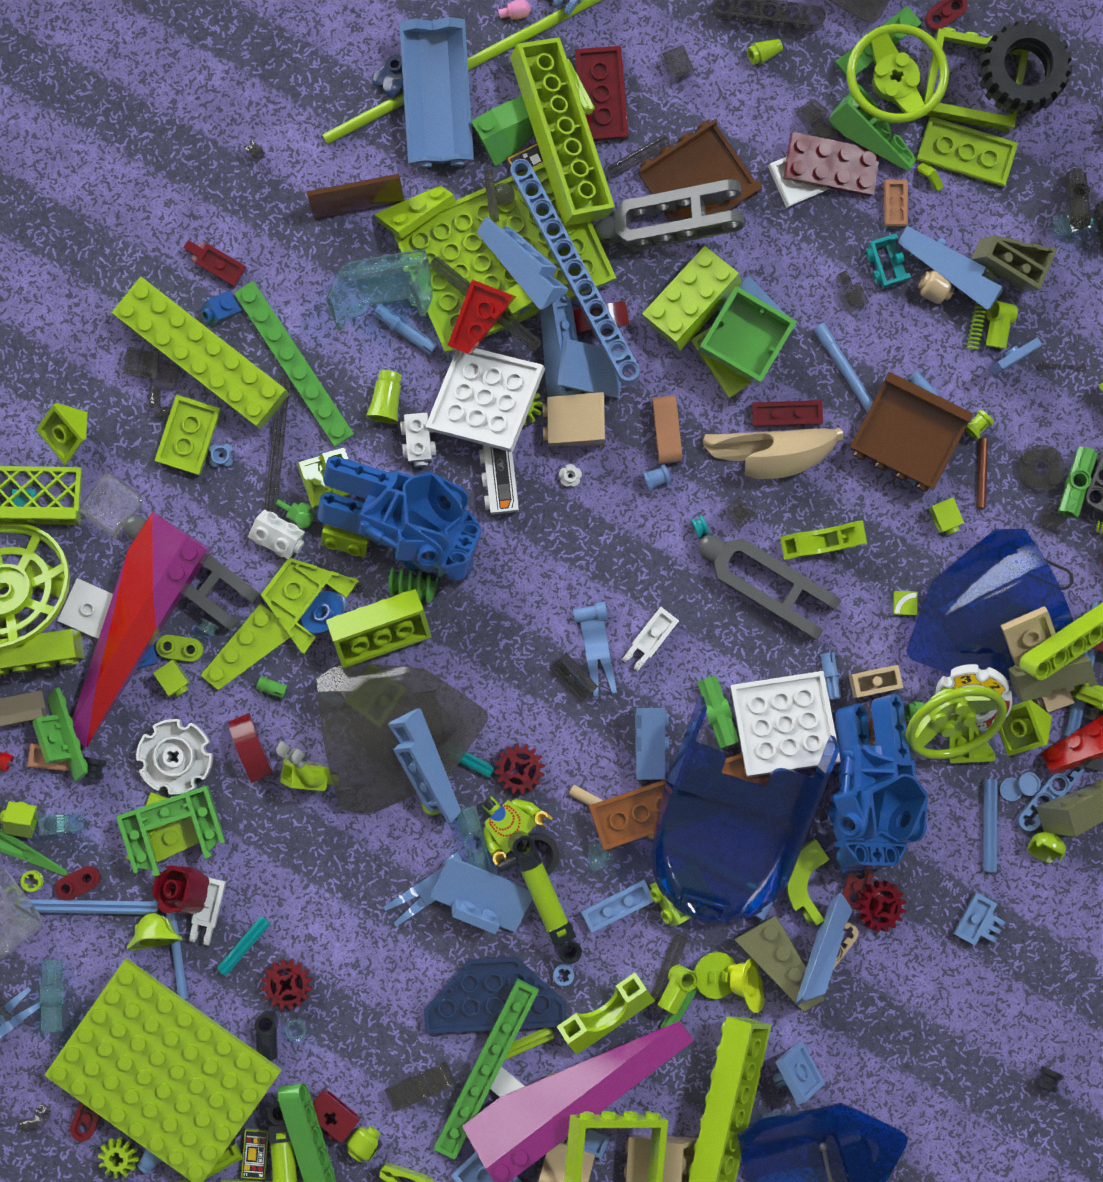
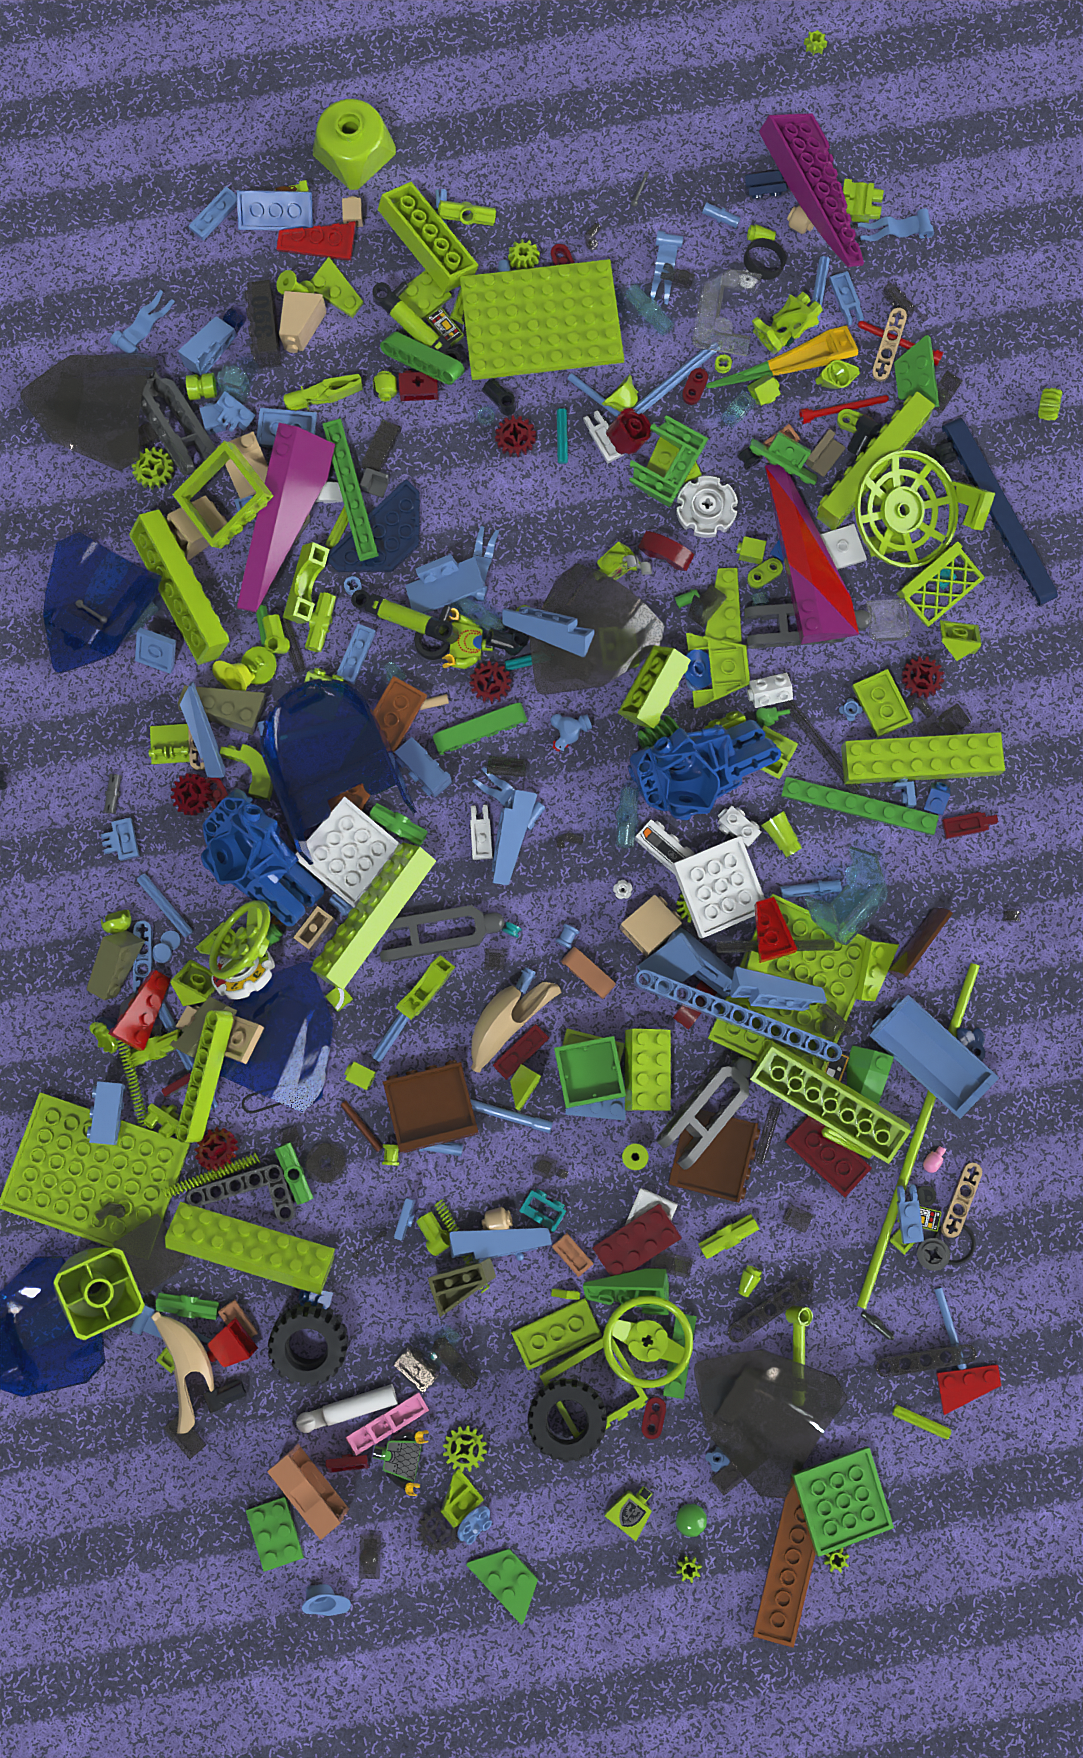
camera: 140 degrees right, 5 degrees down
(140, 427) = (927, 684): none -> dark red gear
(243, 333) = (908, 796): none -> medium blue bracket
(261, 663) = (705, 606): none -> clear smoke slope
(457, 1056) = (374, 482): none -> dark grey panel
(472, 792) = (509, 642): none -> black piece
(488, 661) = (569, 729): none -> medium blue animal
(498, 545) = (626, 829): none -> clear light blue piece
(567, 734) = (477, 728): none -> bright green beam
(575, 563) = (560, 840): none -> clear smoke arm
(623, 965) = (320, 622): none -> lime piece
(626, 611) = (510, 834): none -> medium blue wedge
(725, 473) = (525, 980): none -> medium blue pin
(748, 101) = (728, 1236): none -> lime piece
(774, 227) = (642, 1156): none -> lime piece
(812, 379) = (522, 1085): none -> lime slope
(815, 644) = (372, 915): none -> lime brick
(860, 973) = (169, 744): none -> lime hinge
(893, 527) = (390, 1037): none -> medium blue axle
(951, 972) = (112, 794): none -> dark grey pin

